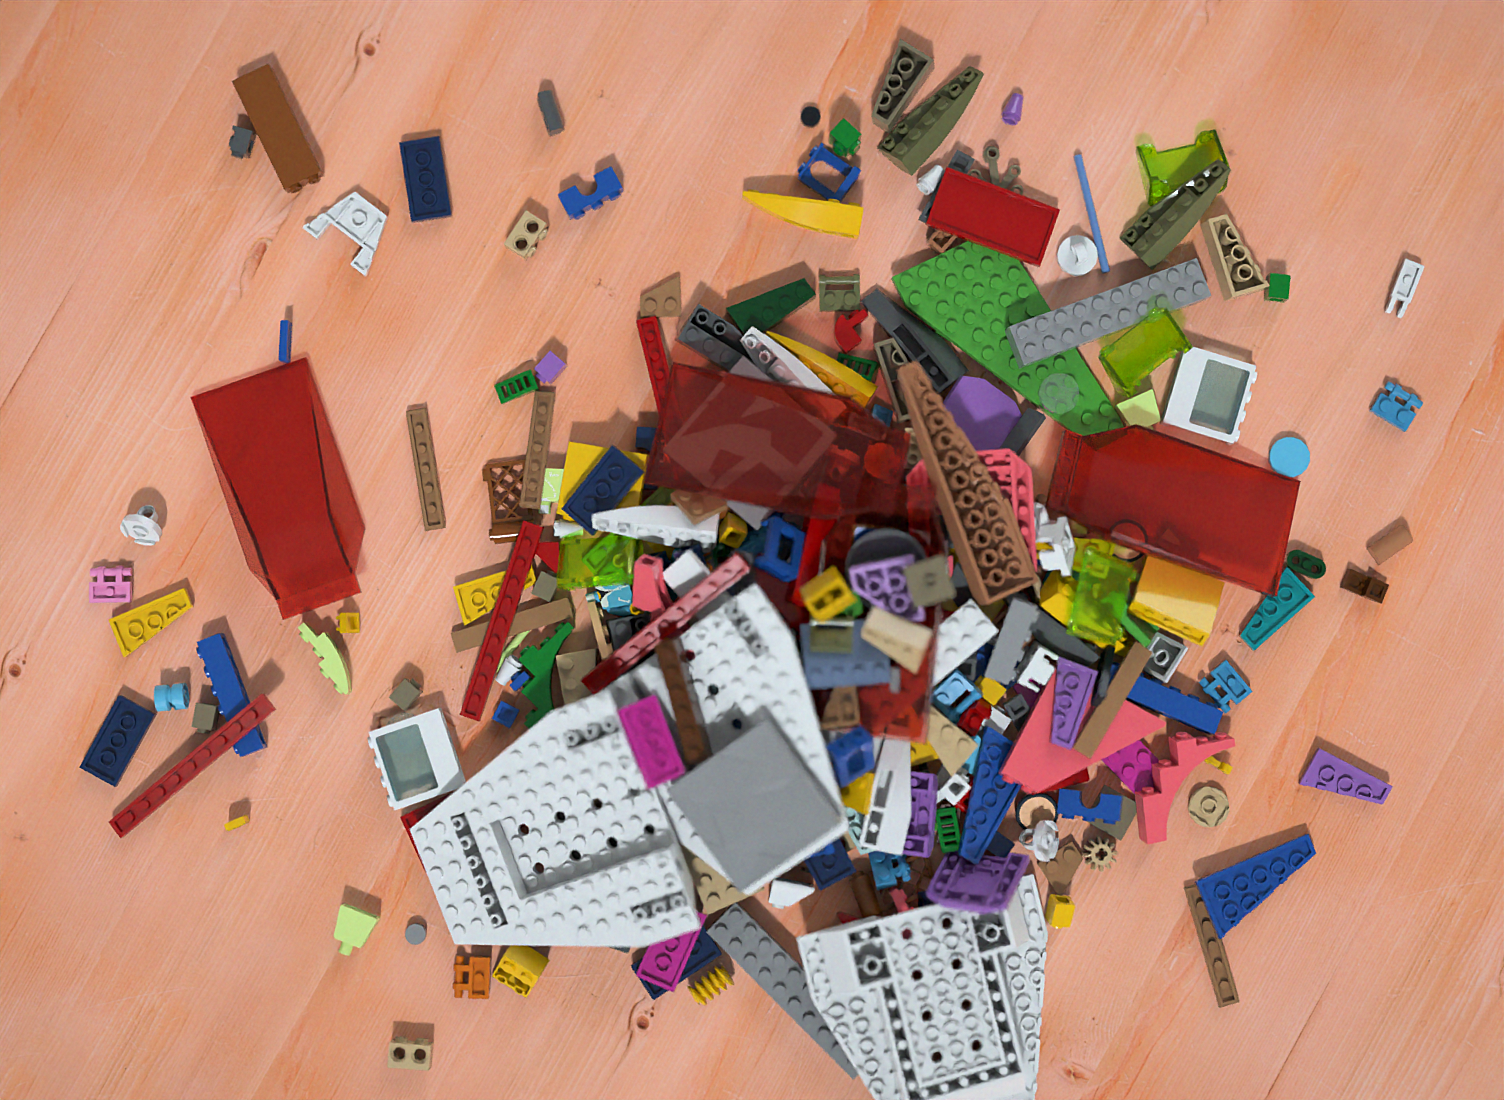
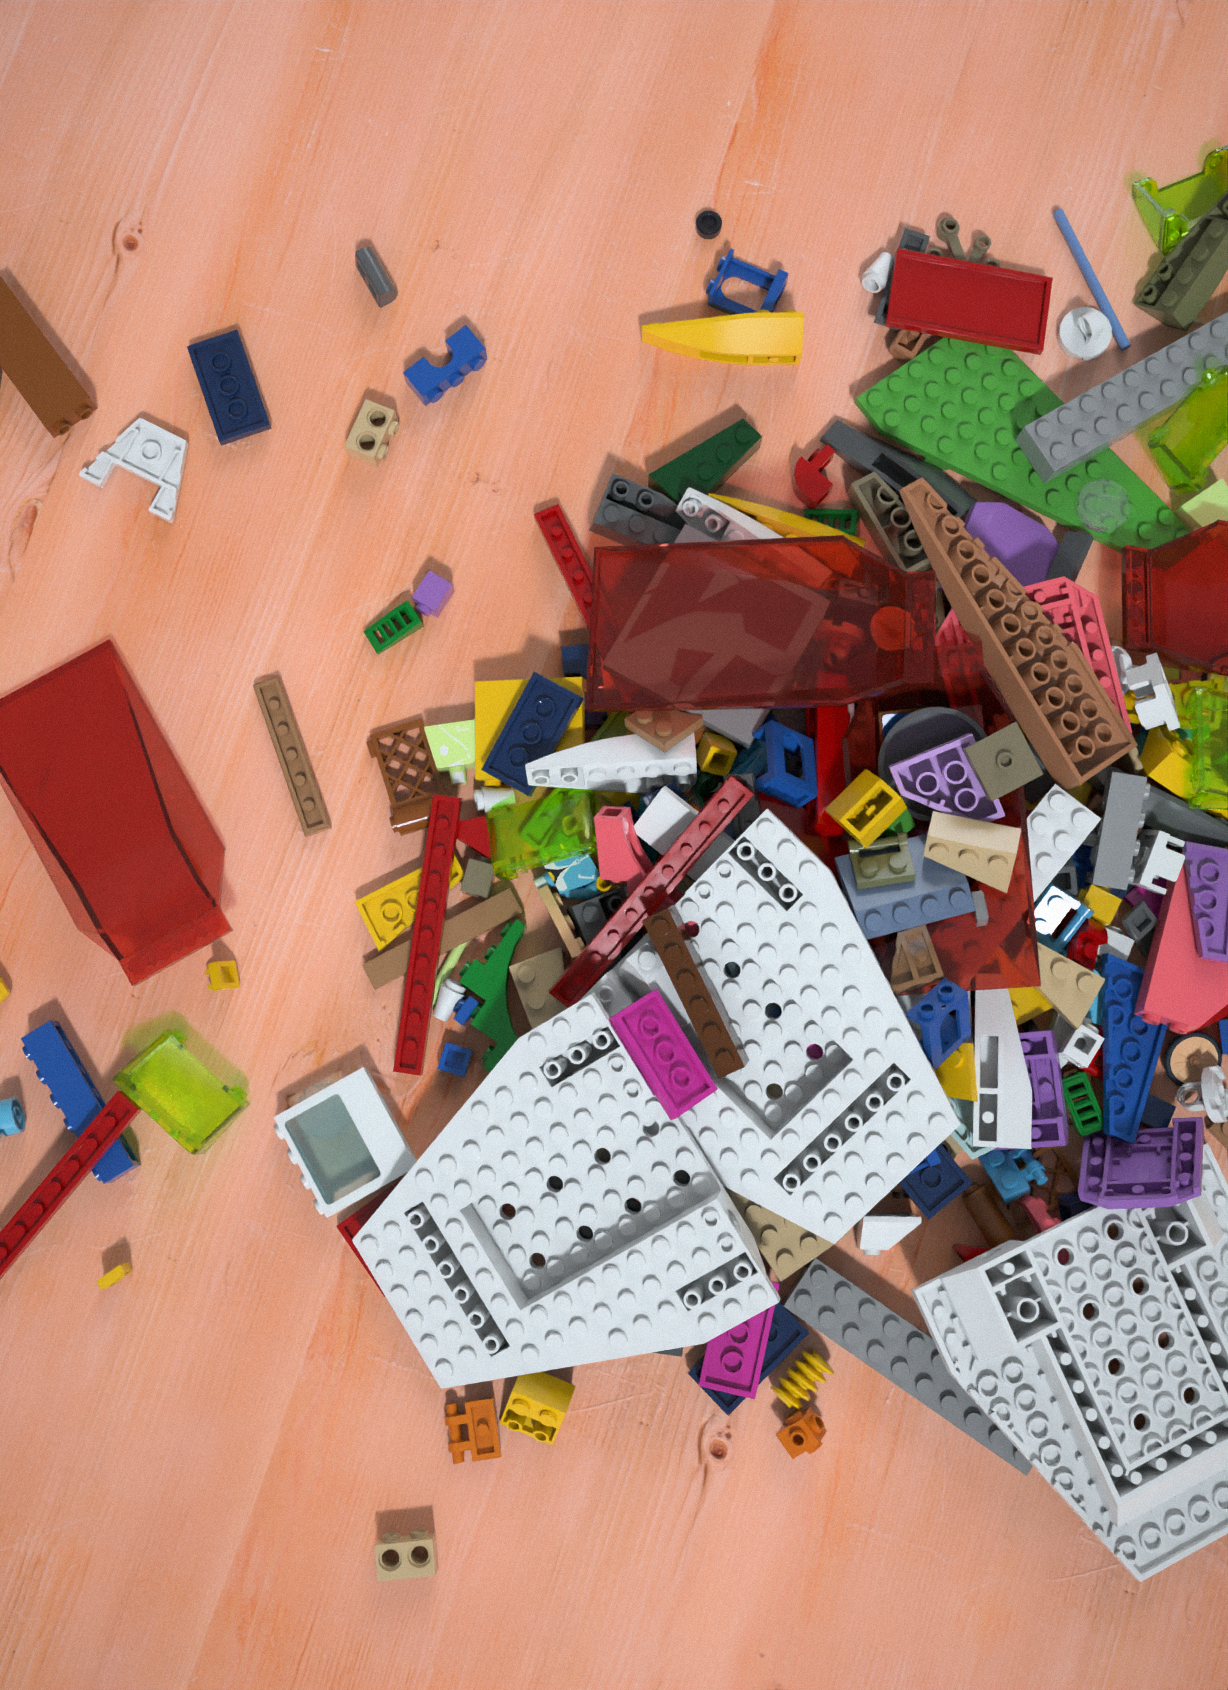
camera: 10 degrees left, 5 degrees down
(205, 717) = (49, 1139): dark tan brick -> none
(285, 341) = (79, 623): blue tile -> none
(305, 701) = (181, 1092): none -> clear neon green windscreen
(333, 664) = (210, 1034): yellowish green slope -> none
(353, 927) = (298, 1391): yellowish green torso -> none
(406, 693) = (316, 1056): dark tan brick -> none
(415, 933) = (385, 1384): light grey tile -> none
(537, 449) = (435, 702): medium nougat tile -> none
(662, 301) = (563, 485): medium nougat wing -> none
(702, 1021) = (801, 1432): none -> orange brick
(754, 805) = (823, 1115): light grey tile -> none
(839, 299) = (792, 442): olive plate -> none
(845, 139) = (760, 238): green brick -> none
(905, 78) = (820, 153): dark tan wedge -> none
(930, 123) = (864, 203): olive wedge -> none
(1012, 112) = (964, 171): medium lavender cone -> none

